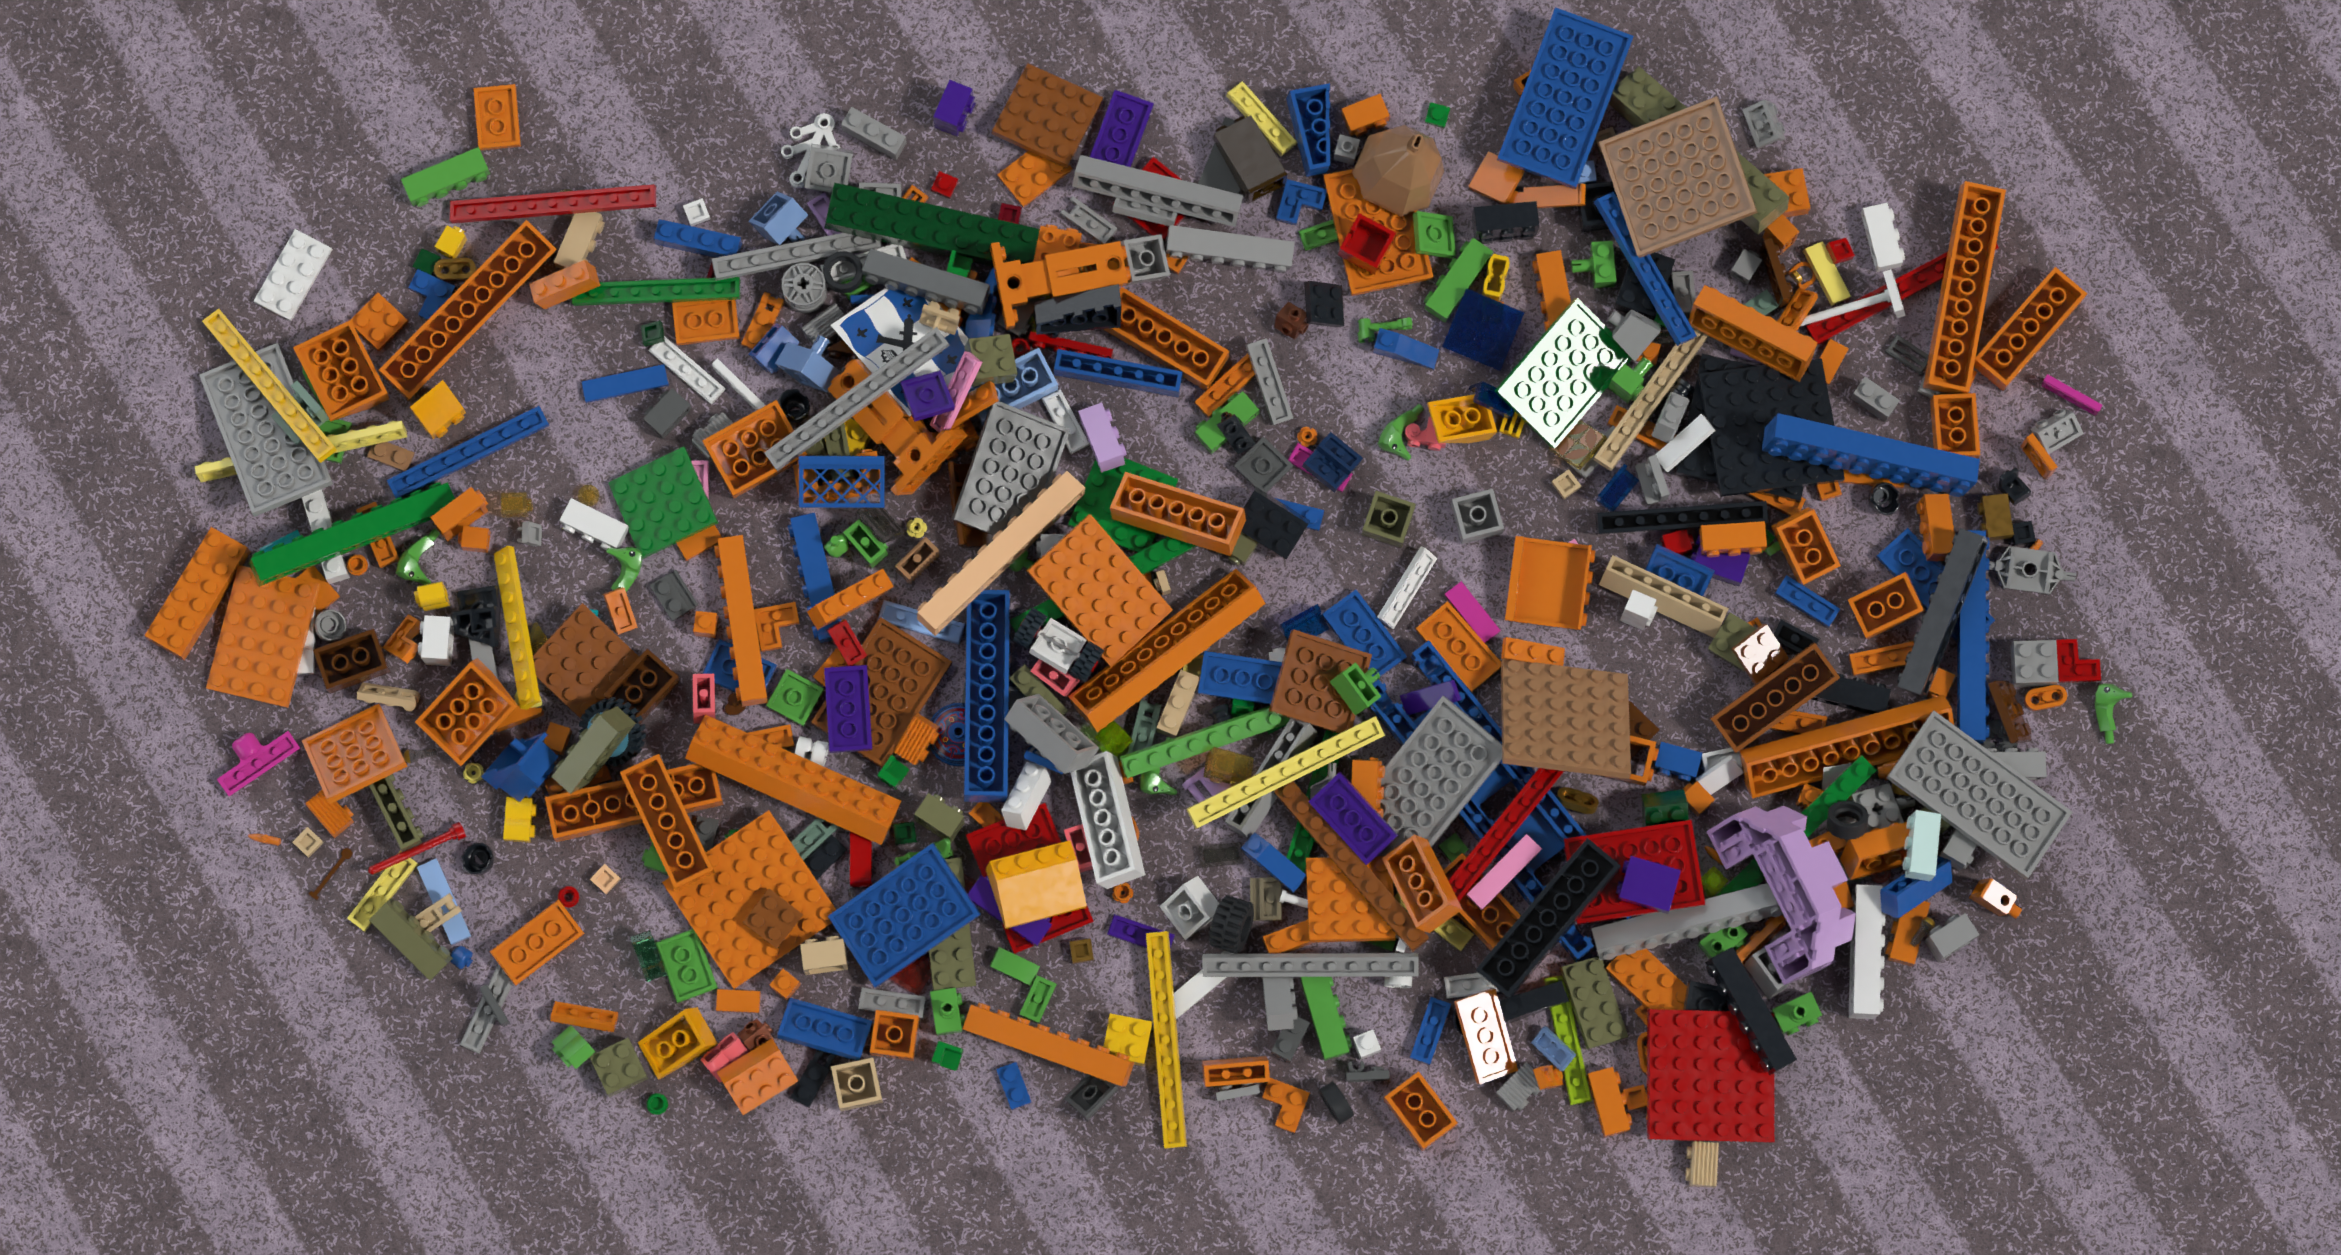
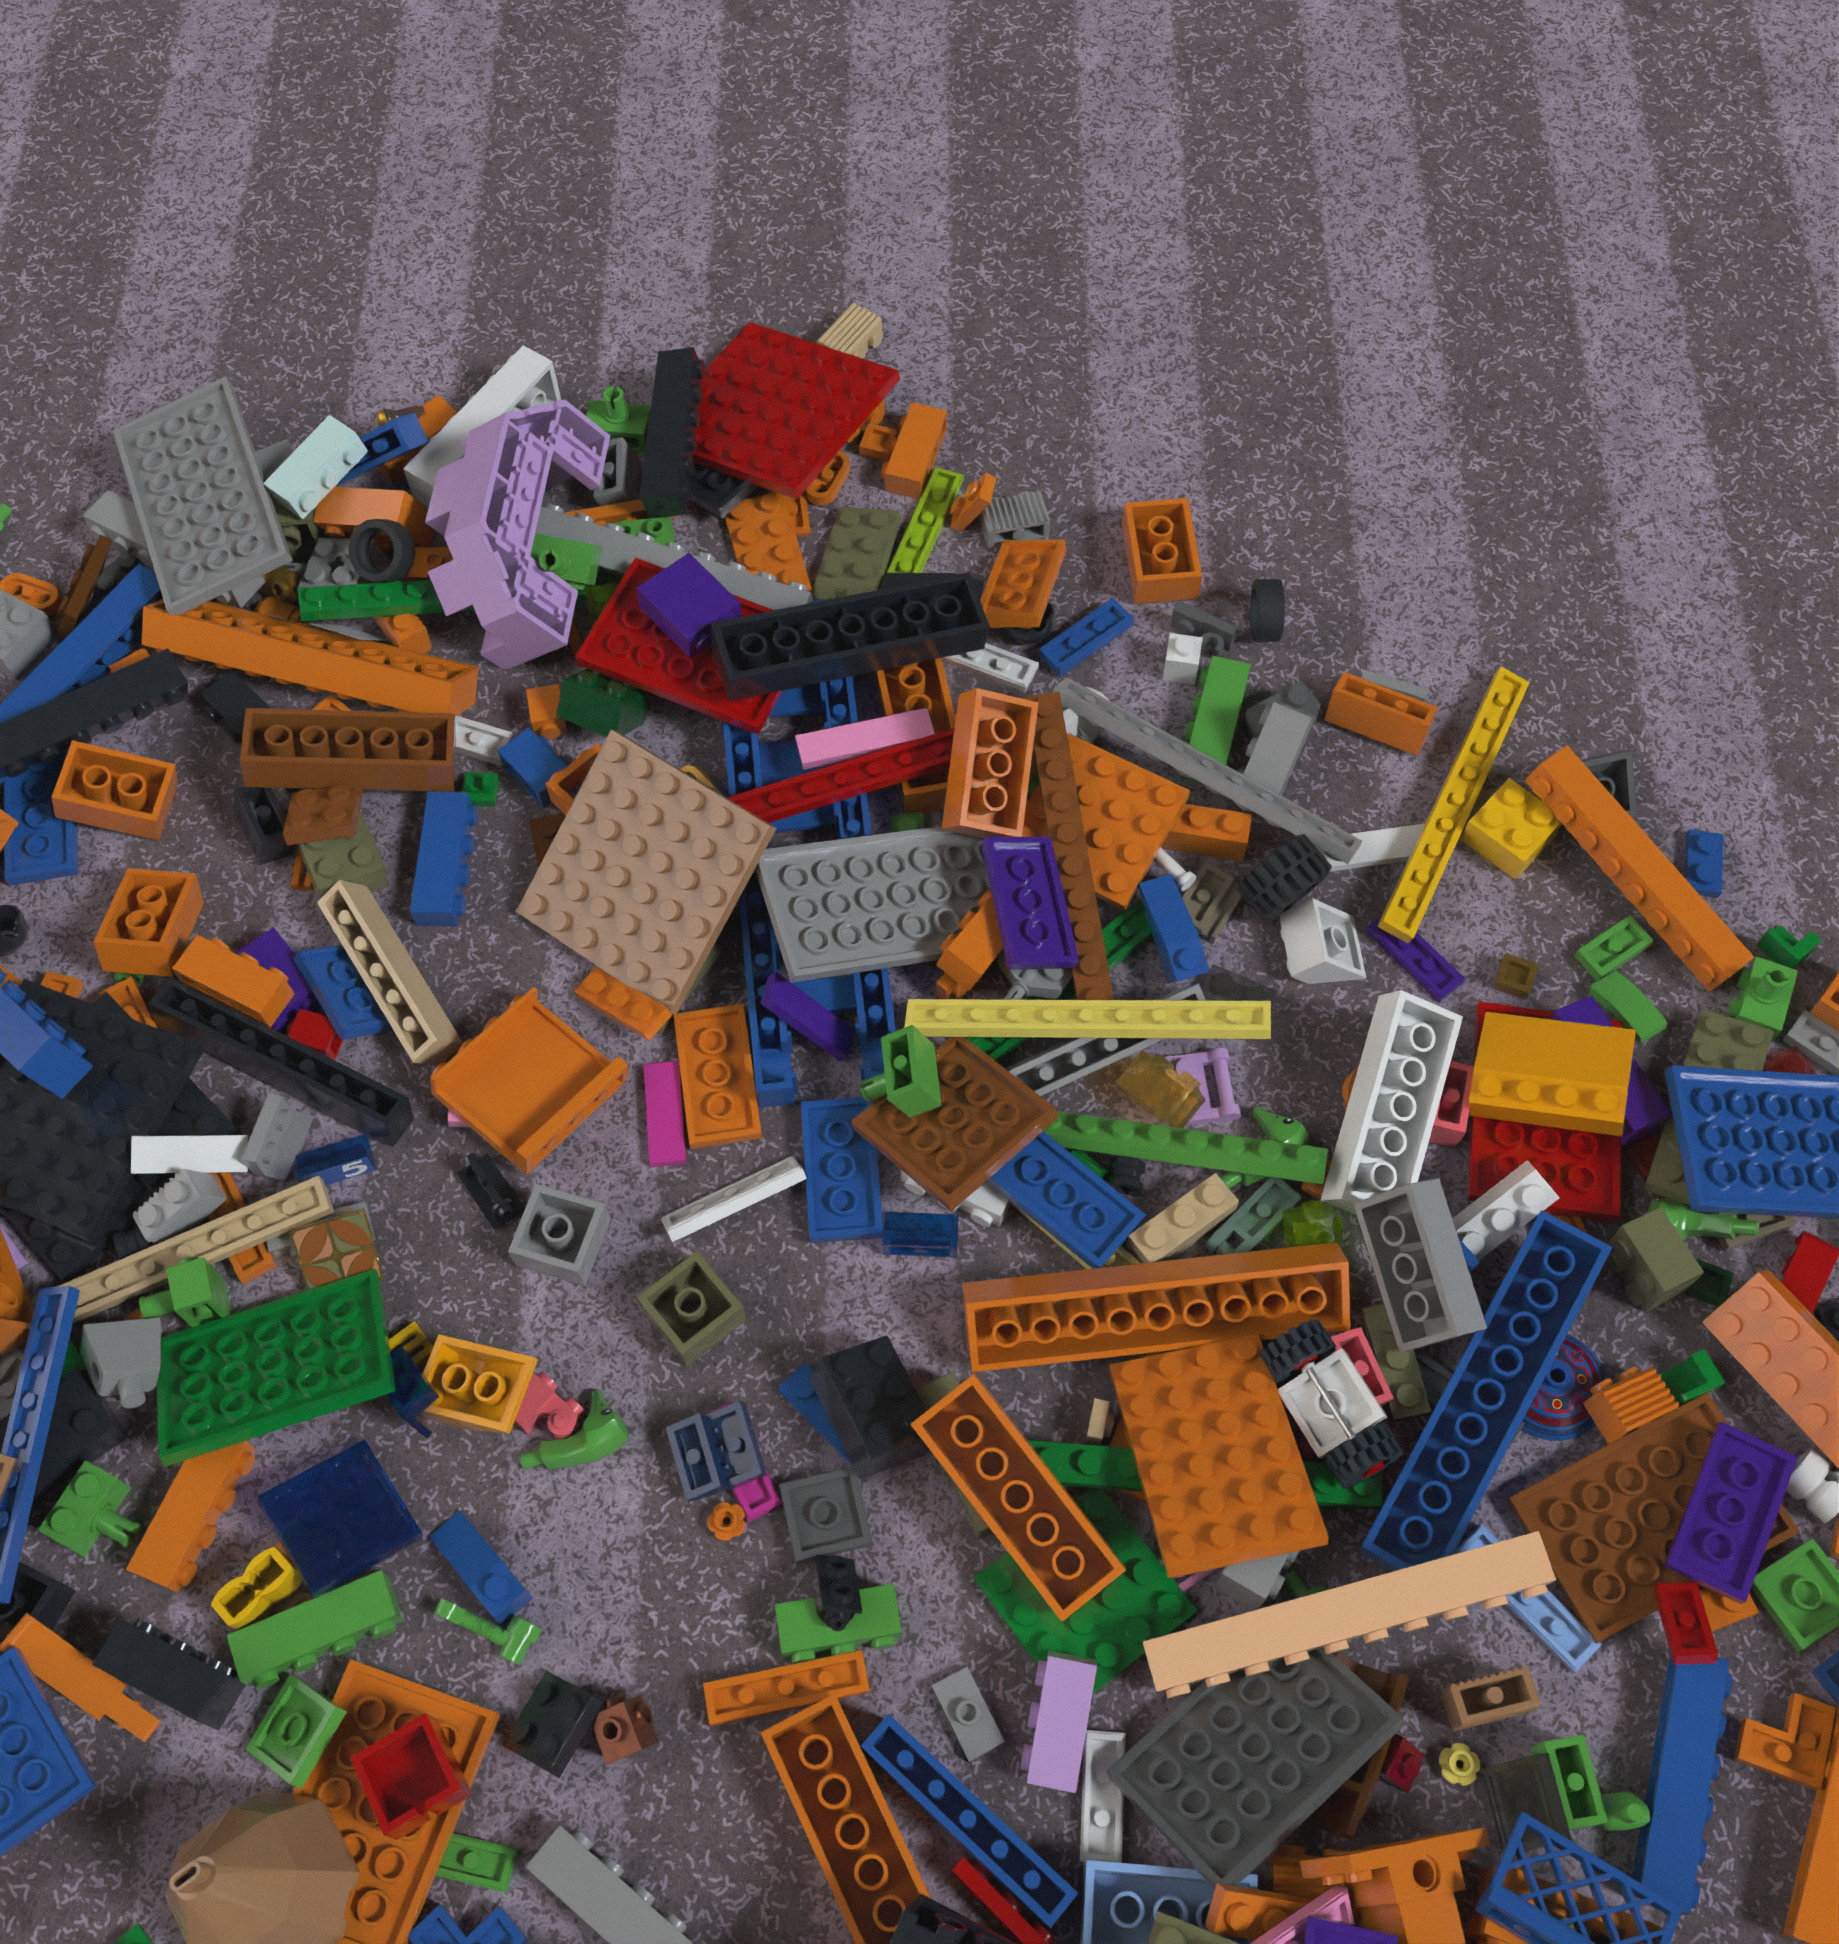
camera: 145 degrees left, 15 degrees down
(850, 599) = (1648, 1693): orange brick -> none
(942, 511) = (1401, 1763): none -> dark red plate
(1145, 420) = (968, 1714): none -> light grey plate
(1269, 381) = (727, 1646): light grey plate -> none
(1292, 1102) = (1322, 653): orange plate -> none
(1496, 179) = (130, 1769): orange tile -> none
(1530, 521) = (489, 1190): none -> black hinge
(1553, 1048) = (942, 534): medium blue plate -> none
(1566, 484) = (400, 1211): tan plate -> none
(1639, 610) = (436, 959): white brick -> none
(1687, 678) = (443, 858): none -> blue brick
(1701, 733) = (481, 788): none -> green tile
(1720, 775) = (495, 719): white tile -> none
(1743, 878) = (568, 559): none -> bright green brick
(1807, 601) = (211, 867): blue plate -> none
(1879, 658) = (173, 744): orange plate -> none
(1952, 937) = (365, 390): light grey brick -> none
(1988, 894) = (282, 405): orange torso -> none

